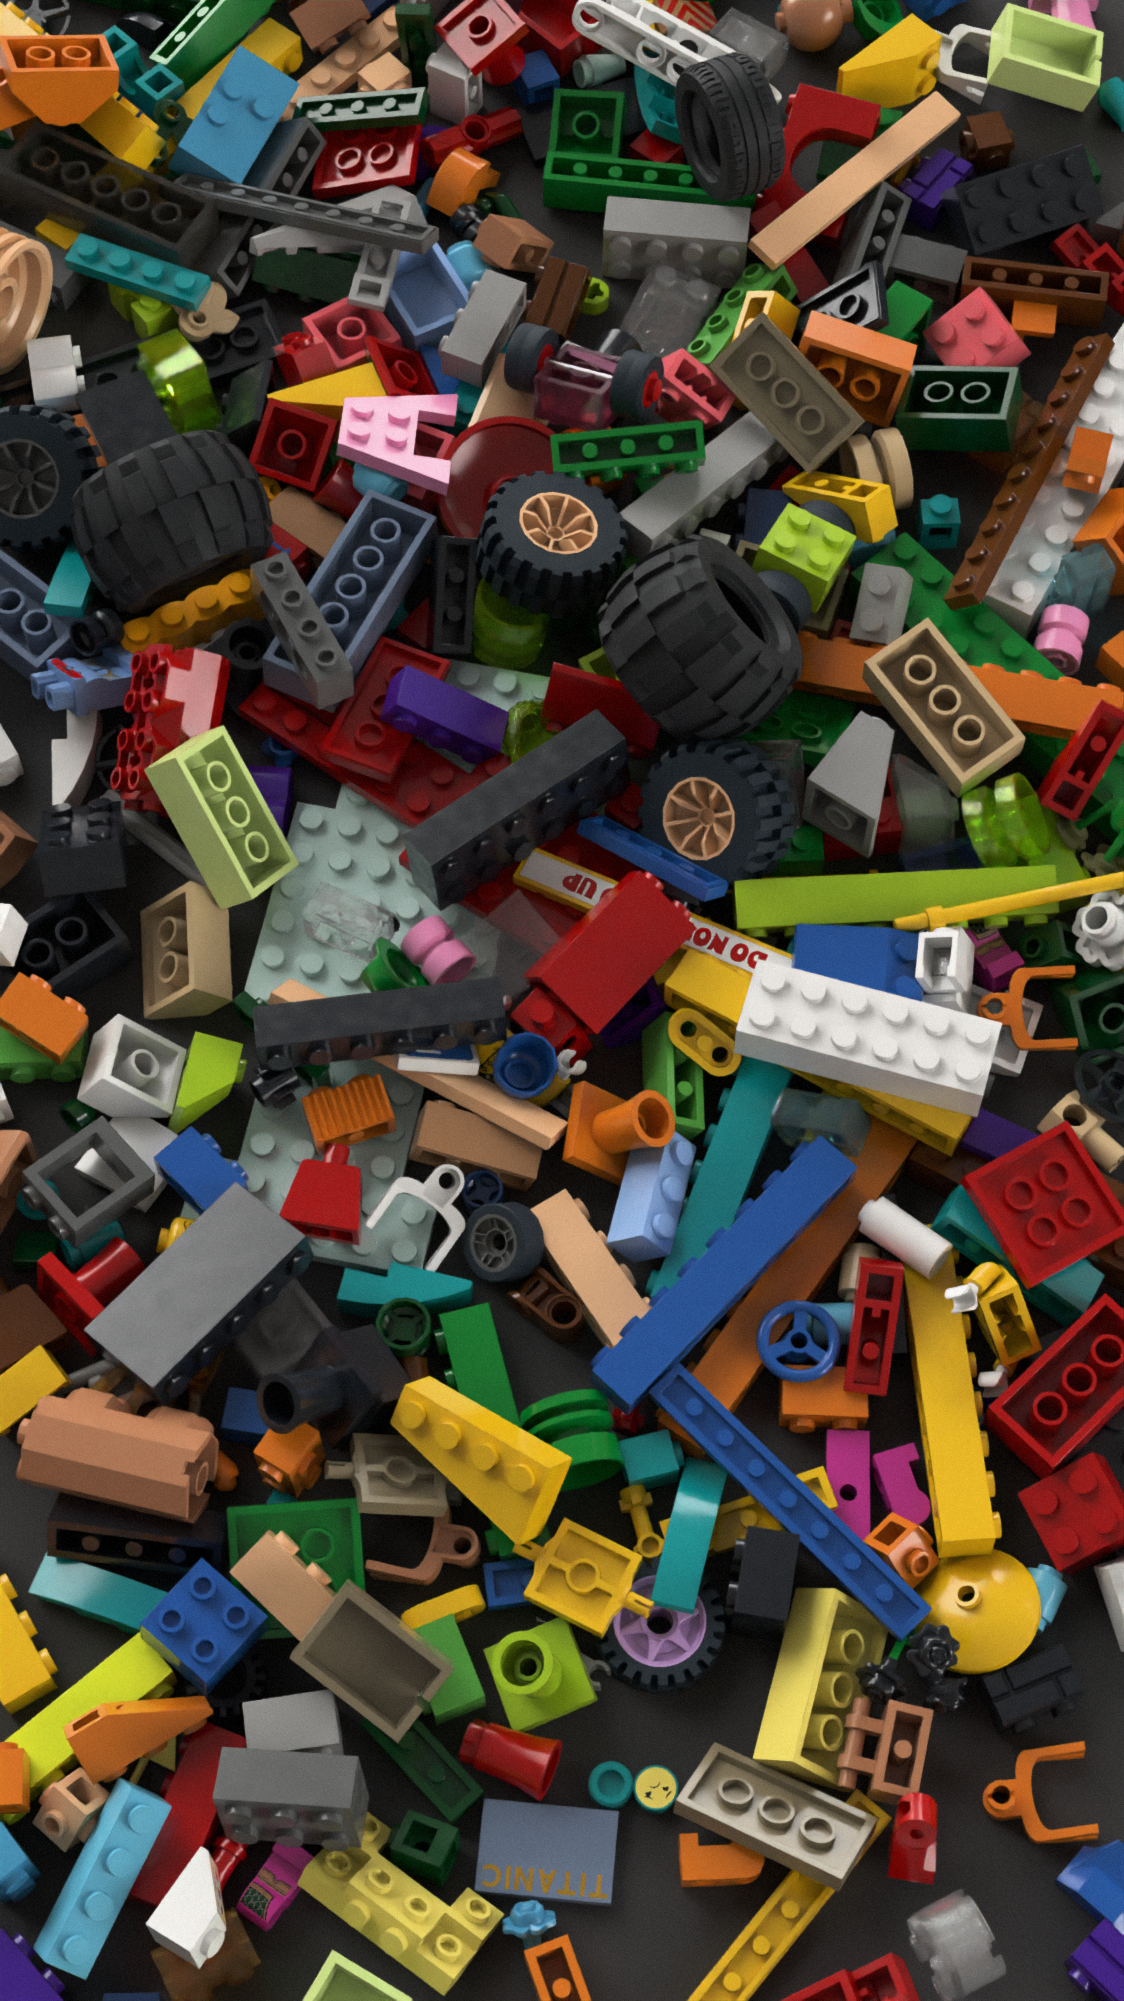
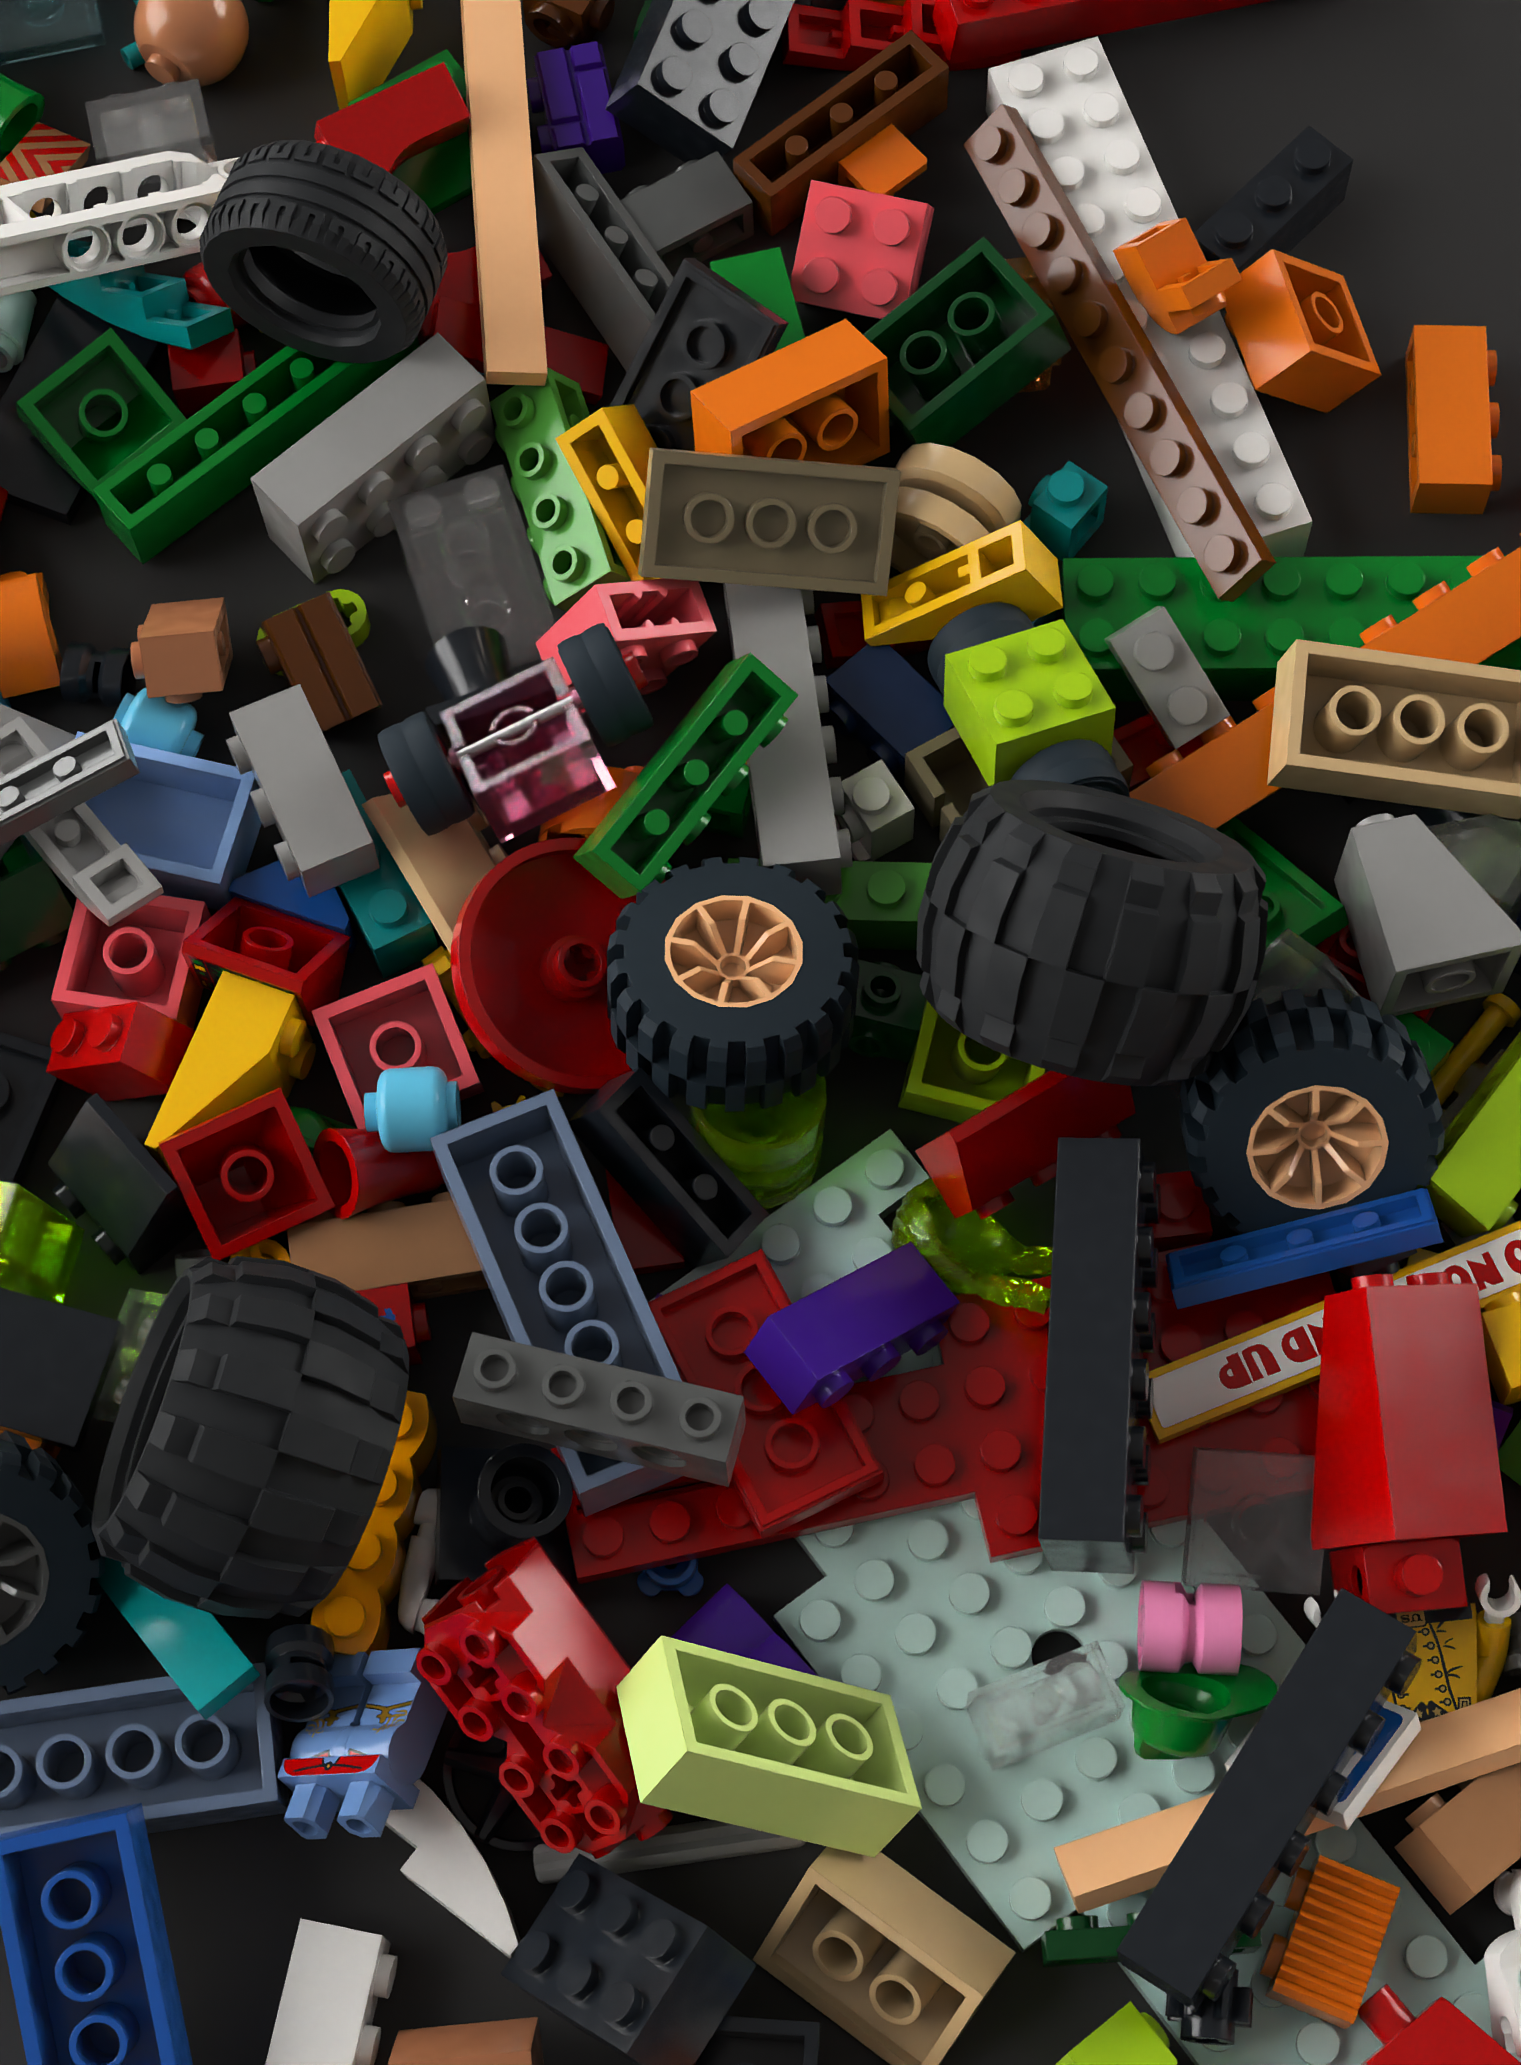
camera: 45 degrees left, 5 degrees up
(383, 435) = (365, 1056): bright pink wing -> none
(497, 204) = (93, 612): dark green arm -> none
(524, 1065) = (1466, 1658): blue hair -> none
(1061, 635) = (1353, 511): bright pink wheel -> none
(1084, 580) = (1317, 425): clear light blue brick -> none

